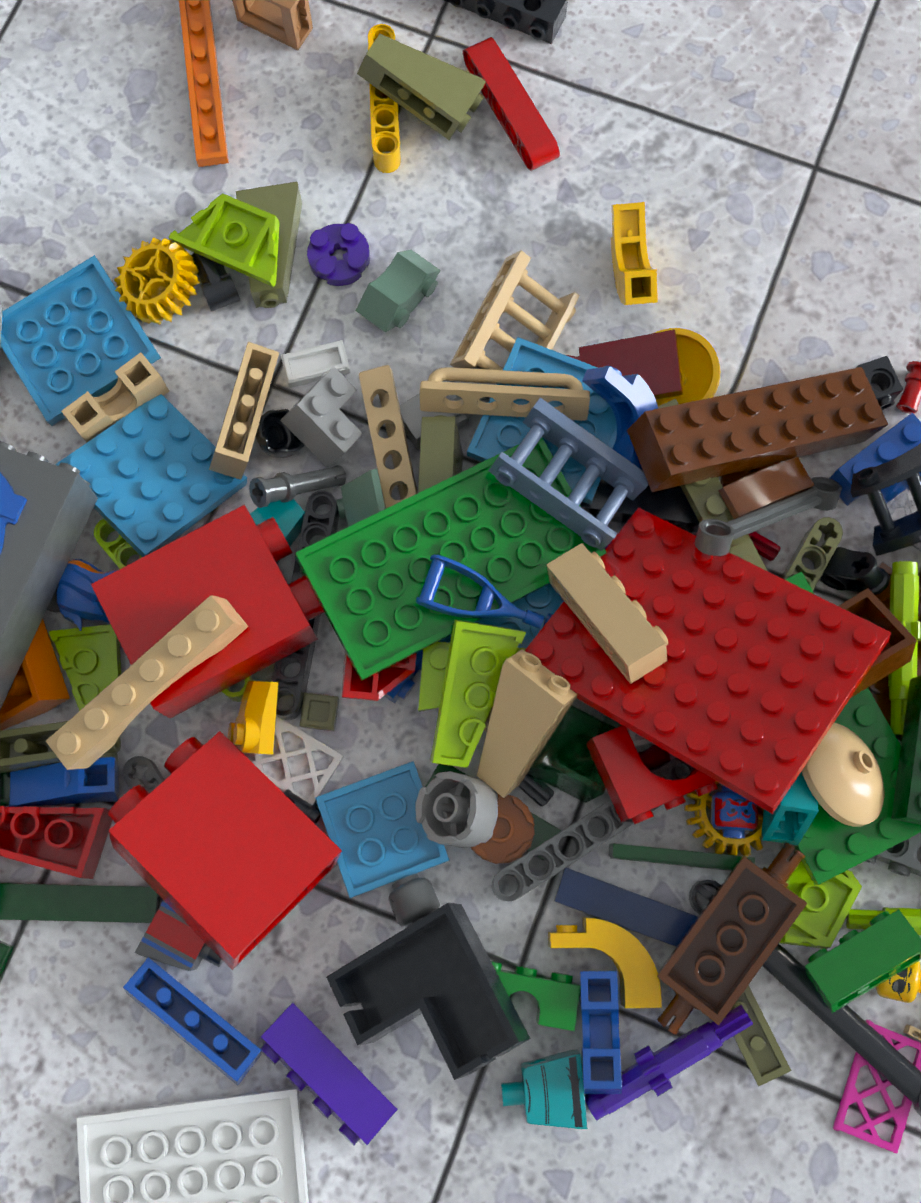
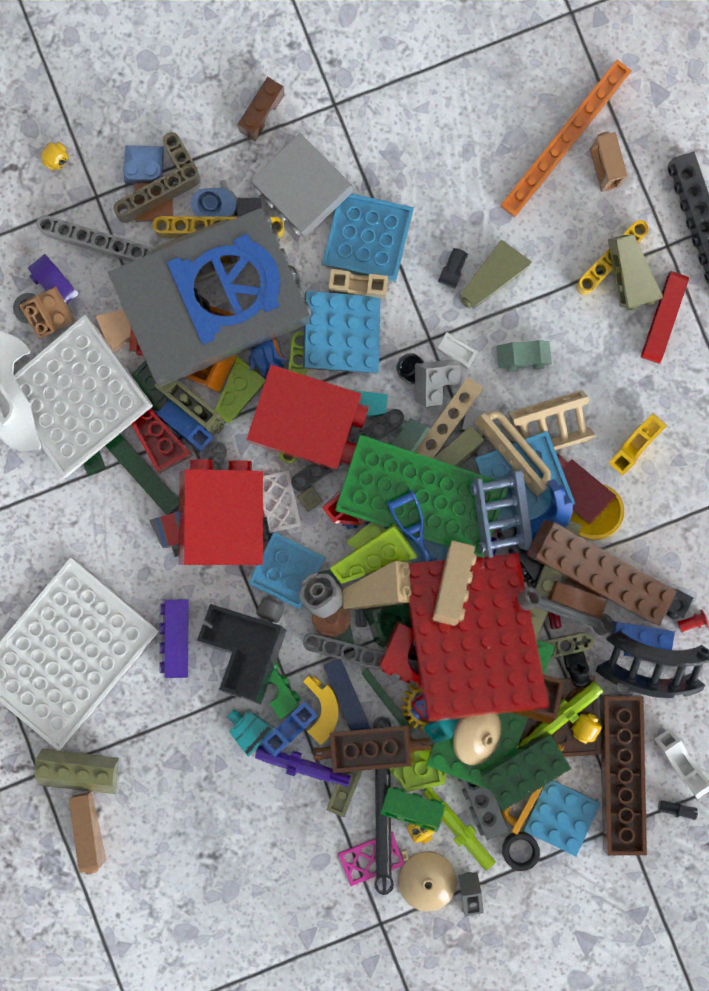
camera: 45 degrees right, 10 degrees up
(105, 717) = (254, 427): tan arch -> none
(157, 280) = (433, 260): yellow gear -> none
(192, 1021) = (145, 567): blue brick -> none
(234, 237) = (478, 263): lime wing -> none
(244, 411) = (405, 344): tan brick -> none
(256, 719) = (280, 480): yellow slope -> none
(286, 487) = (388, 396): dark grey pin -> none
(338, 237) = (527, 305): dark purple plate -> none

